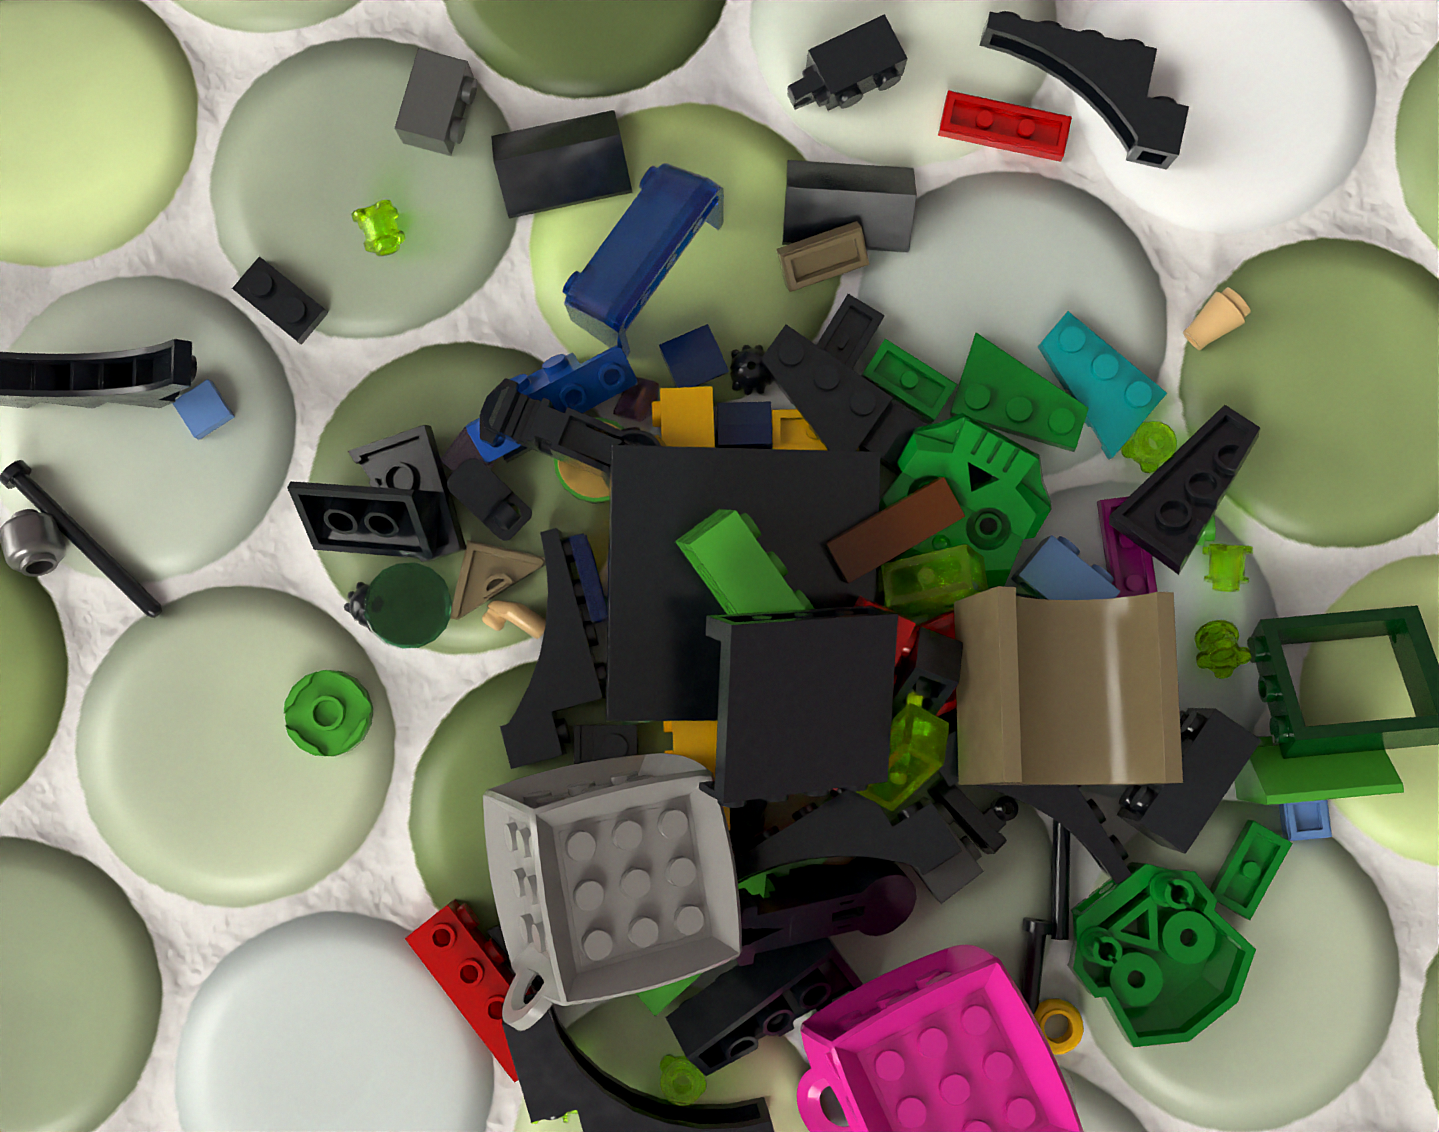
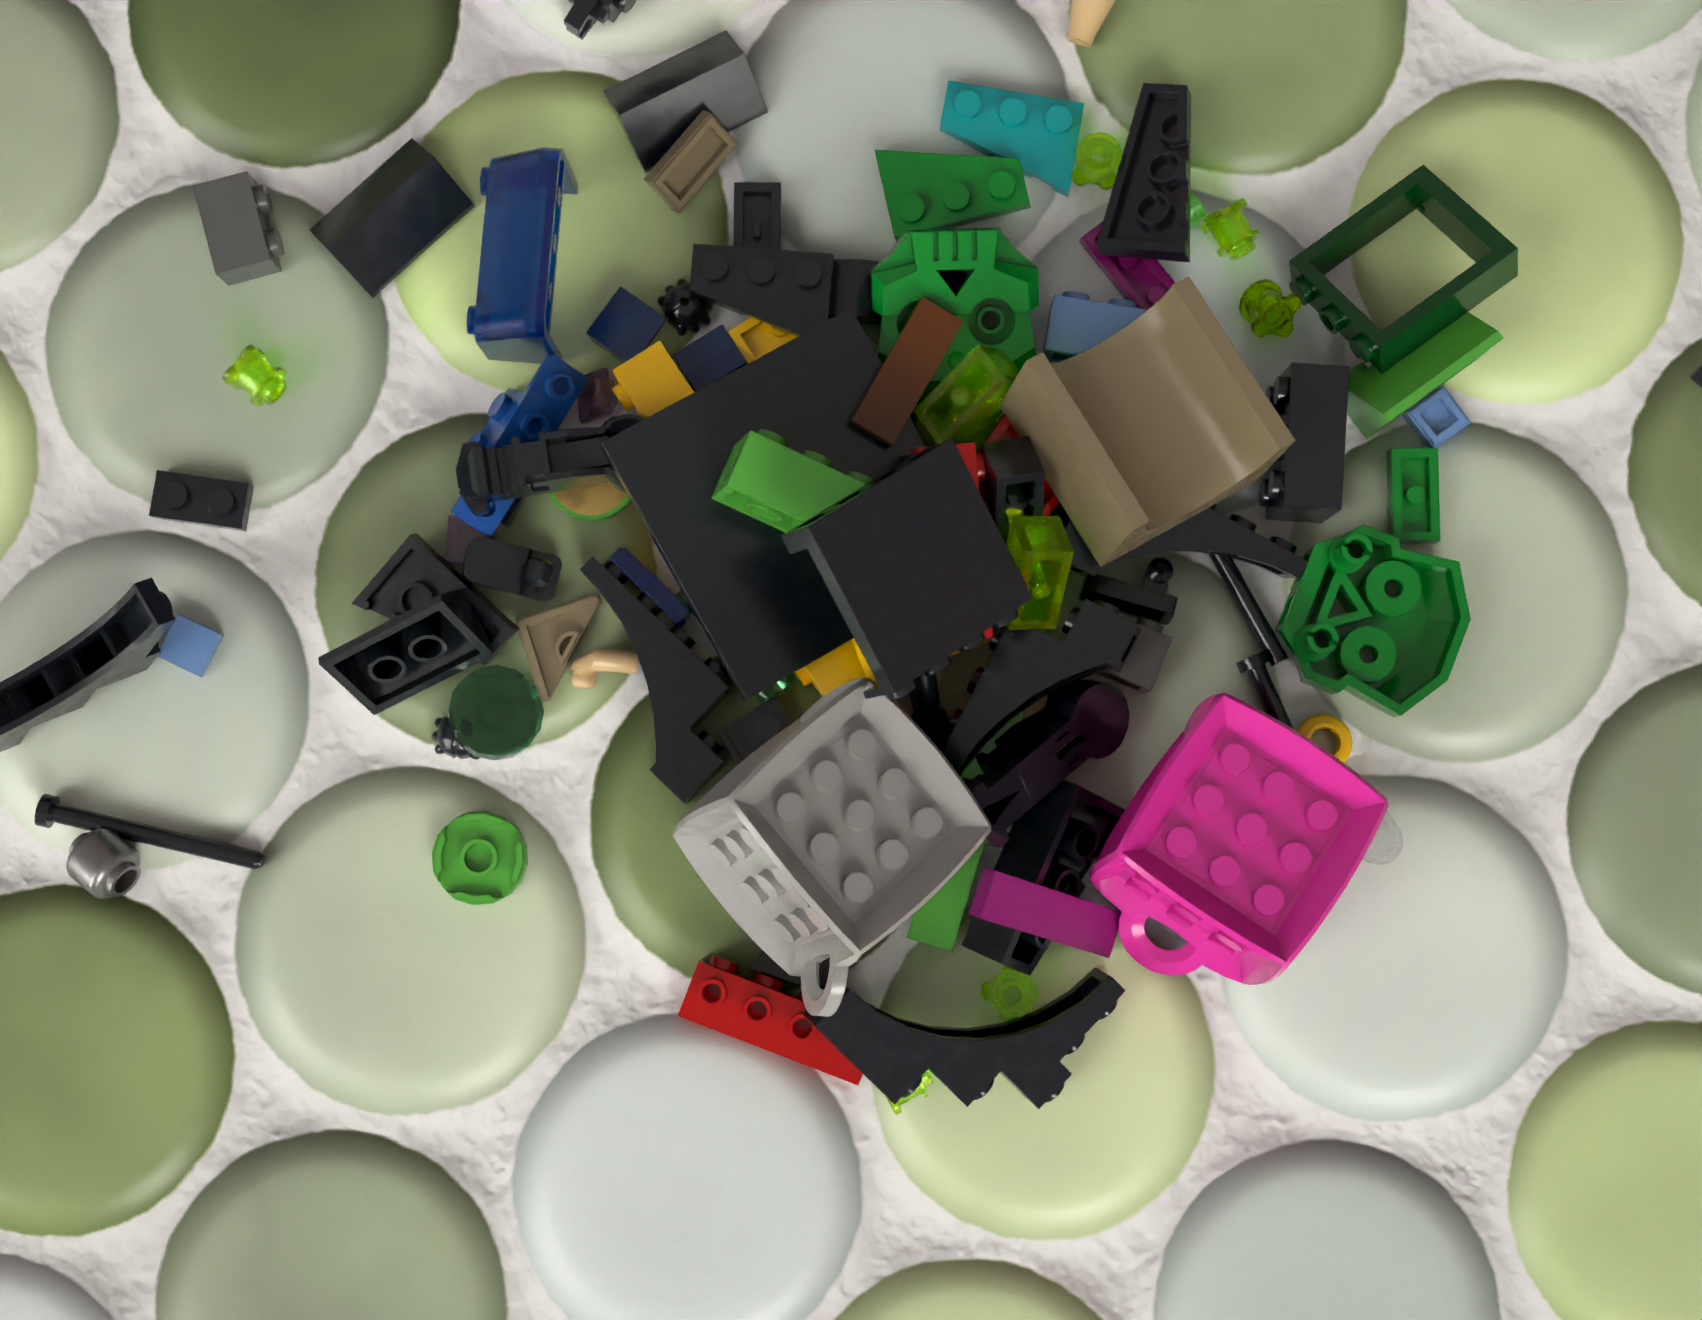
camera: 30 degrees left, 0 degrees up
(746, 1037) = (1045, 912): none -> magenta tile
(909, 380) = (839, 230): green plate -> none

